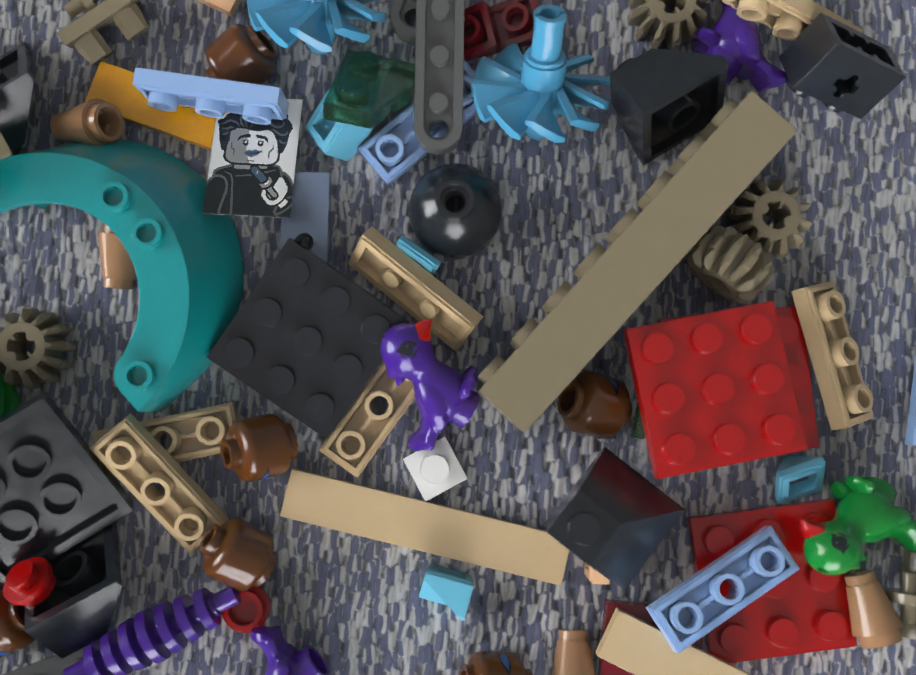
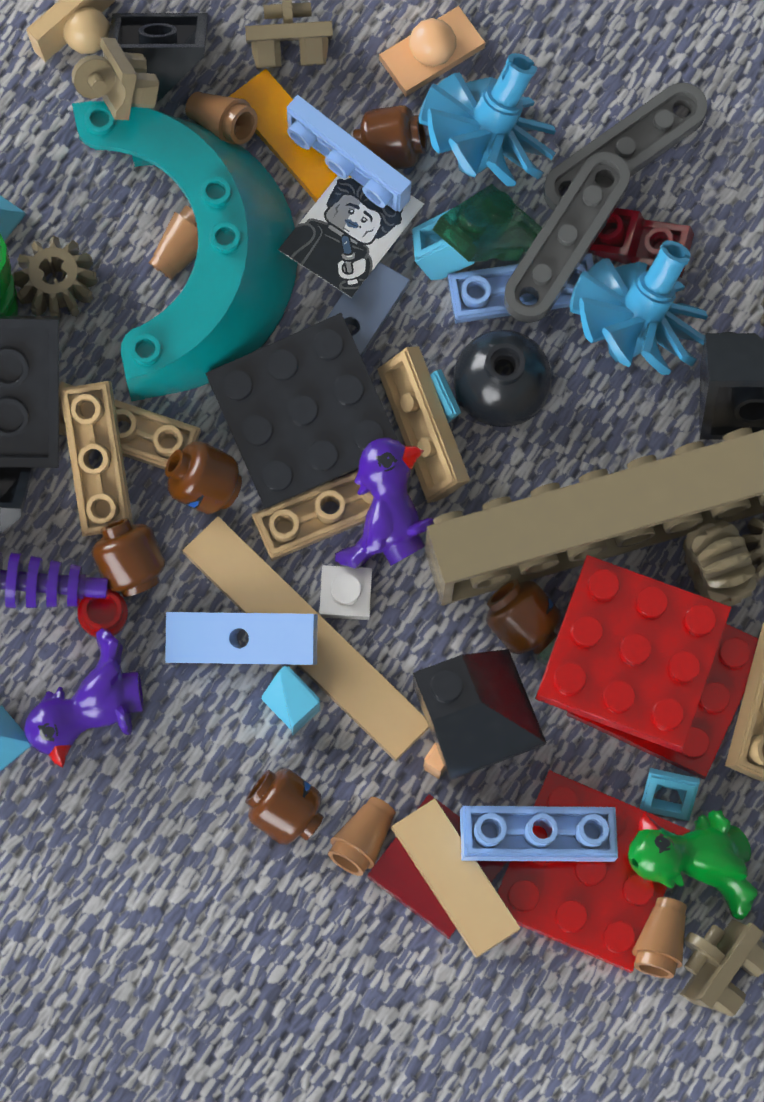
camera: 25 degrees right, 10 degrees down
(353, 578) = (213, 638): none -> light blue tile

